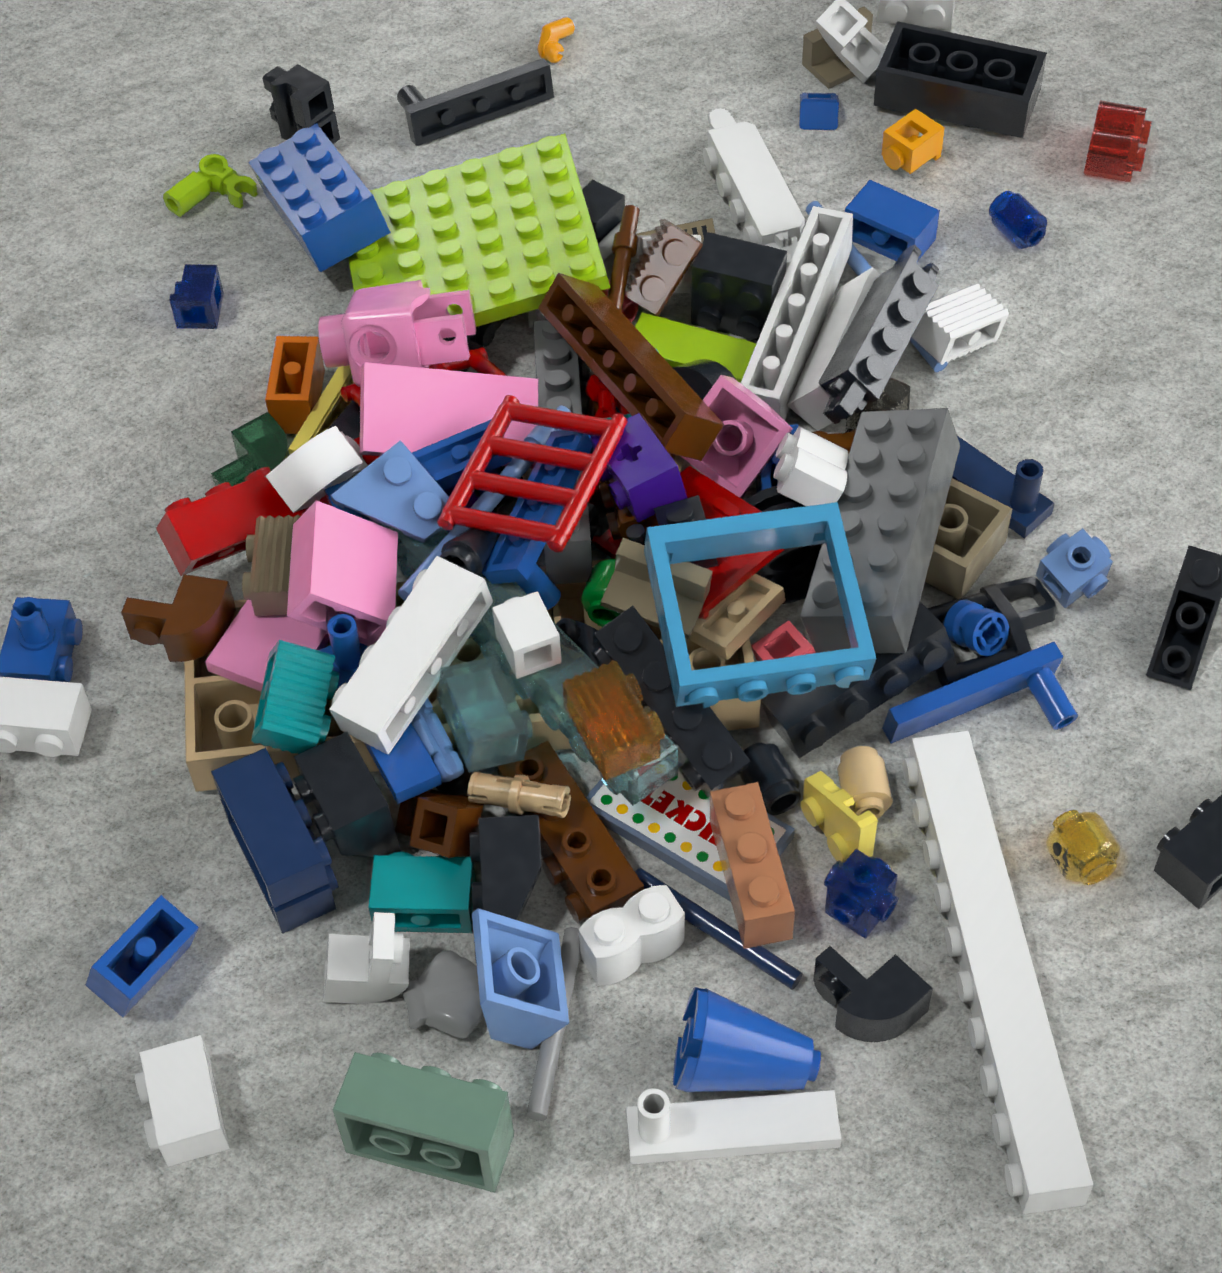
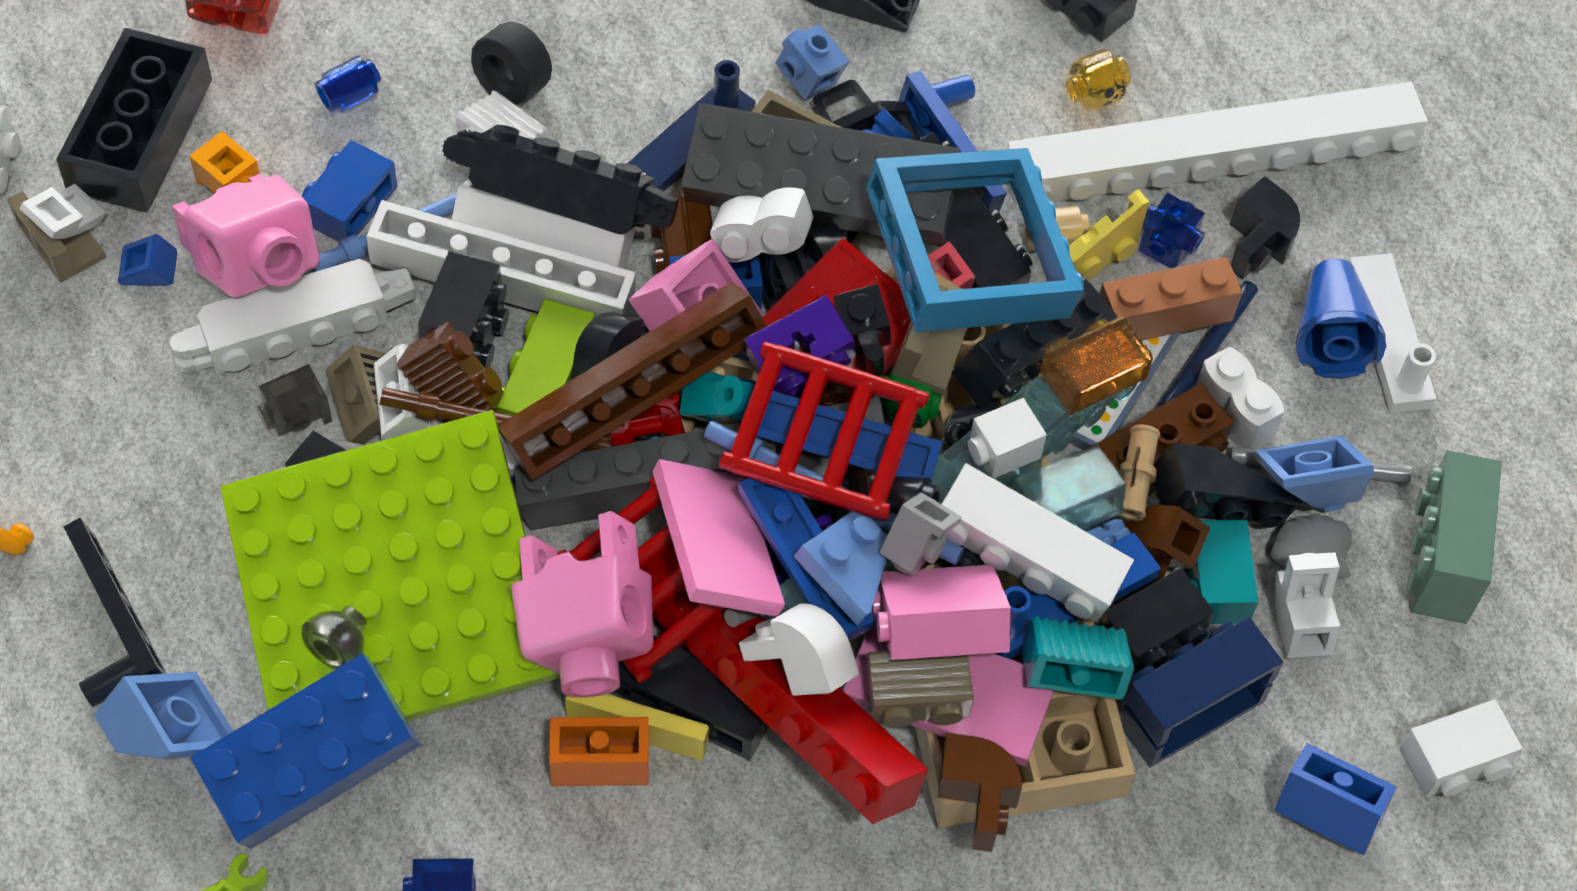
camera: 100 degrees left, 5 degrees up
(257, 446) = (700, 776): clear green brick -> none
(301, 101) = (125, 797): black hips -> none
(372, 133) = (161, 716): none -> medium blue slope
(405, 197) = (335, 636): none -> clear smoke brick
(405, 543) = (918, 534): none -> light grey brick
(666, 194) = (293, 402): none -> clear smoke brick
(815, 129) = (249, 235): none -> bright pink piece
(1046, 325) = (511, 62): none -> black tyre

